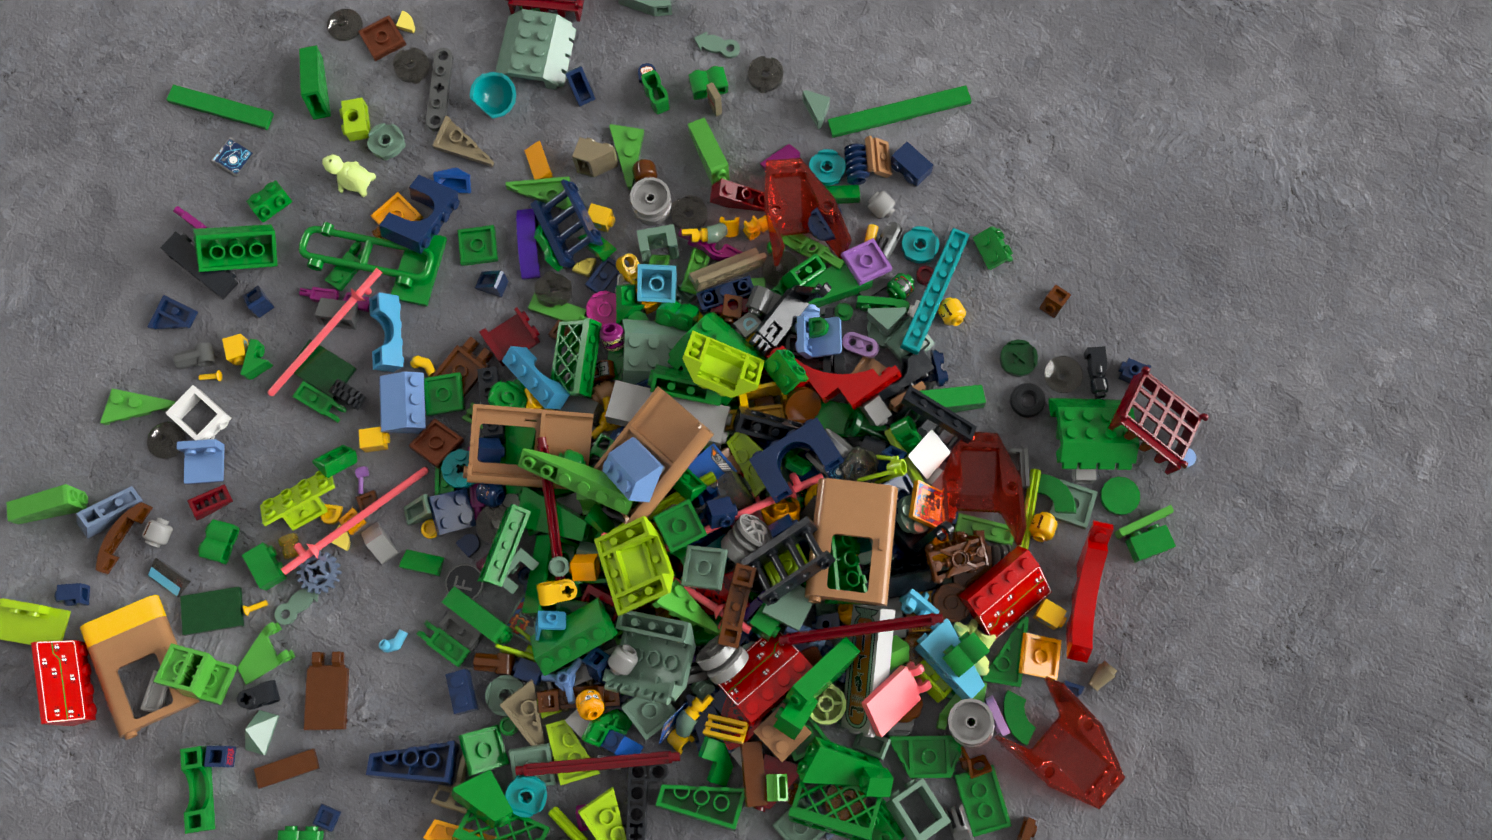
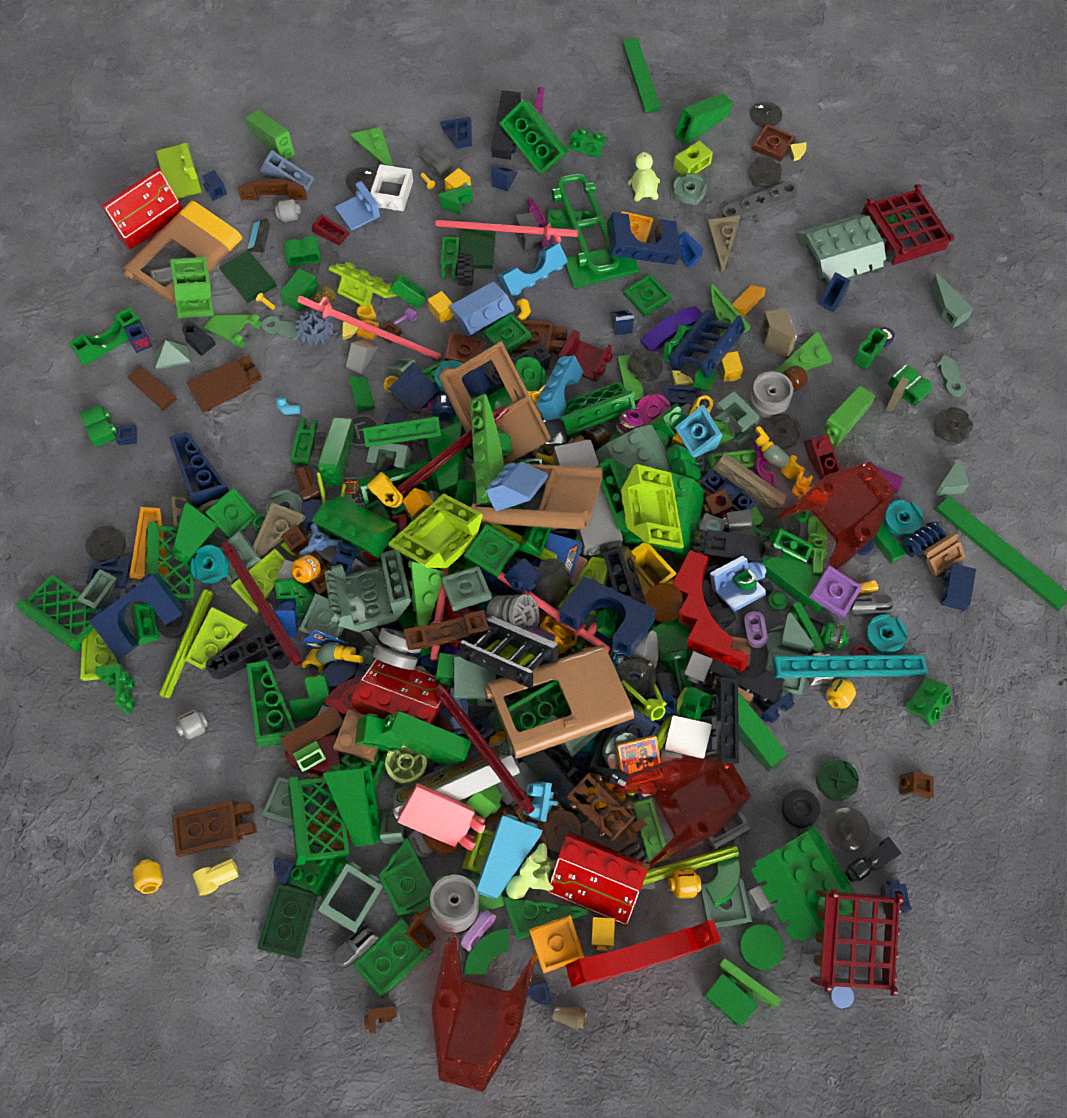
camera: 60 degrees right, 10 degrees down
(233, 156) = (608, 103): sticker -> none
(461, 692) = (271, 474): dark blue brick -> none
(494, 94) = (780, 235): teal cylinder -> none
(550, 621) = (358, 499): dark azure bracket -> none
(558, 566) = (407, 482): sand green tile -> none
(622, 660) = (356, 572): light grey head -> none
(709, 724) = (337, 673): yellow tile -> none
(785, 370) = (685, 568): green bracket -> none
(819, 227) = (841, 538): dark blue tile -> none
(876, 782) = (356, 841): green brick -> none
(881, 204) = (900, 580): light grey head -> none
(965, 654) = (514, 859): green brick -> none

